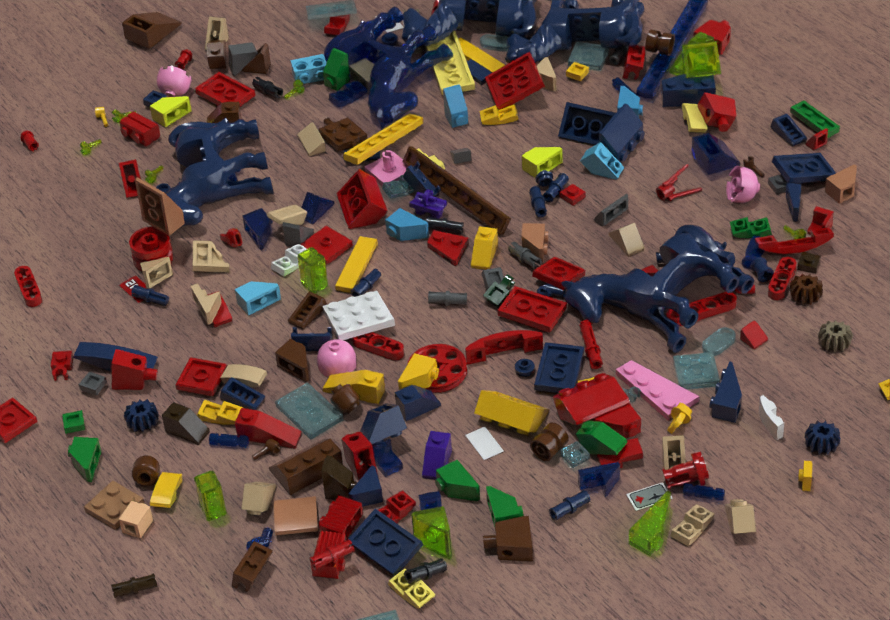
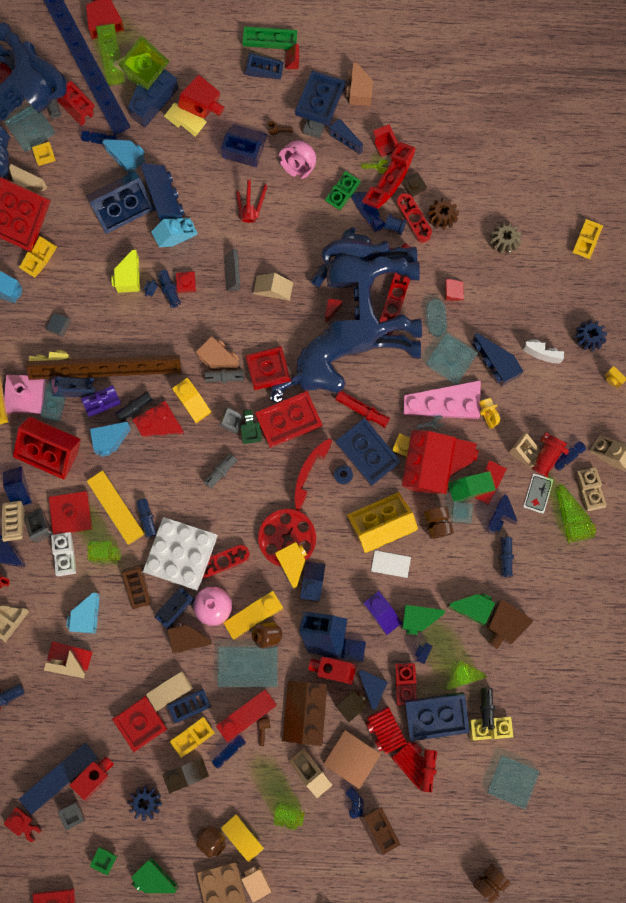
camera: 55 degrees left, 35 degrees up
(538, 201) = (172, 315): dark blue pin -> none
(660, 42) = (80, 67): reddish brown wheel -> none

